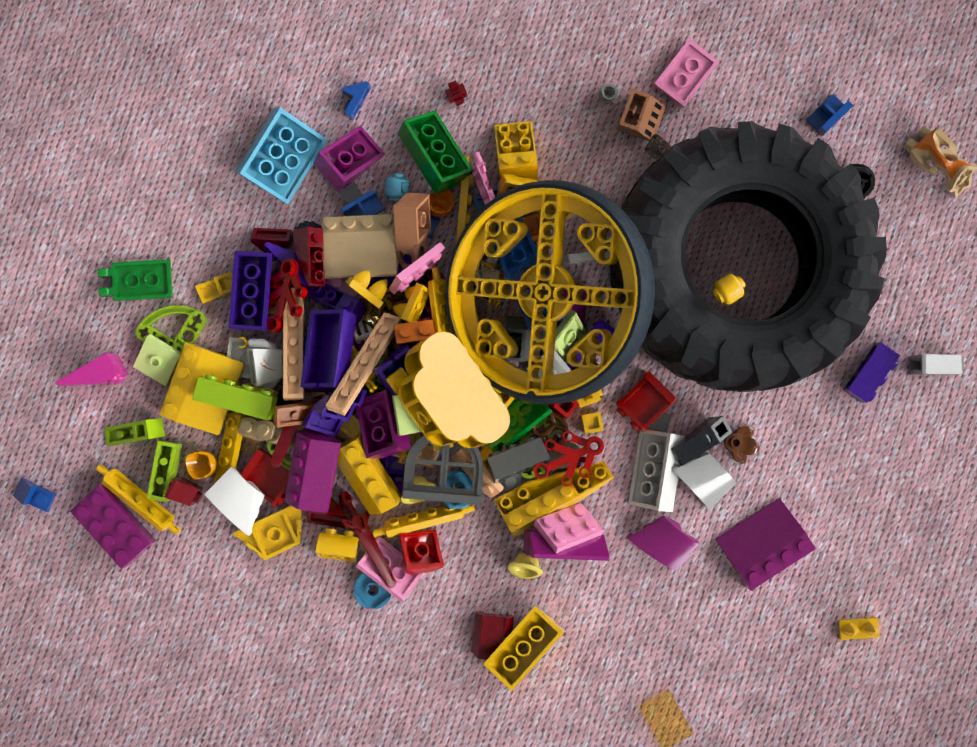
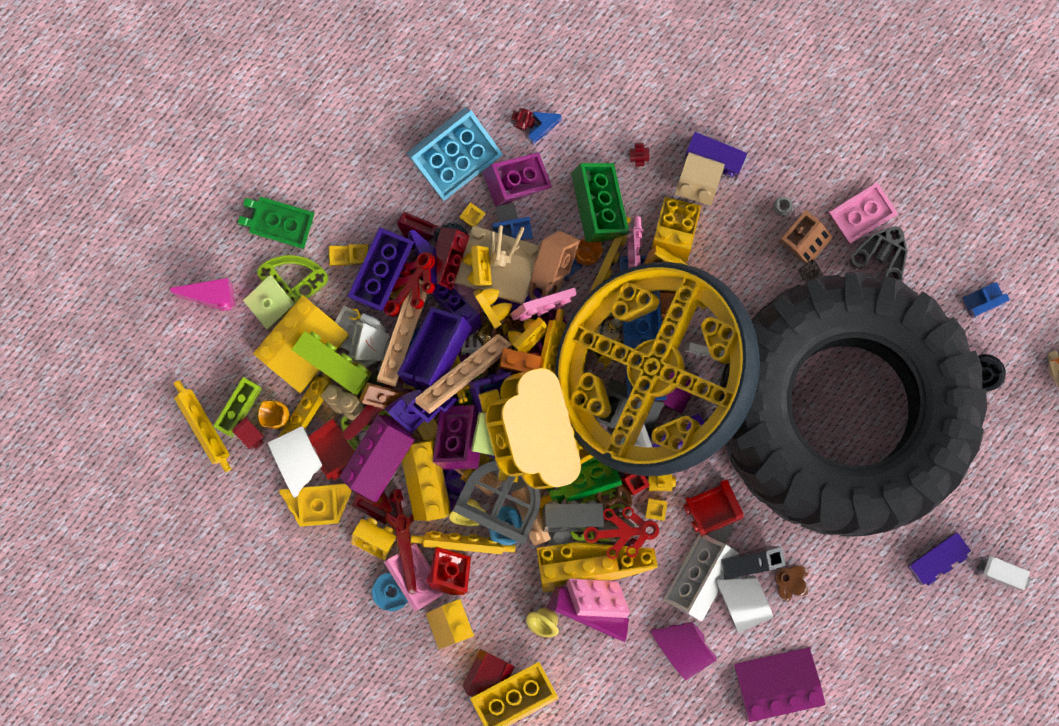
camera: 20 degrees right, 5 degrees down
(34, 495) = (106, 386): blue slope -> none
(113, 526) = (170, 442): magenta brick -> none
(134, 432) = (222, 361): lime slope -> none
(319, 208) = (472, 215): none -> yellow plate
(333, 99) = (522, 119): none -> dark red gear
(341, 249) = (480, 260): none -> yellow tile
(358, 239) = (499, 257): none -> tan plant
(396, 186) = (552, 222): medium azure head -> none
(440, 600) = (450, 624): none -> yellow slope
(521, 95) = (699, 179): none -> tan slope
(528, 67) = (719, 152): none -> dark purple brick
(569, 334) = (662, 414): yellowish green plate -> none
(729, 289) = (822, 424): yellow head -> none
(735, 106) = (868, 248): none -> dark grey connector

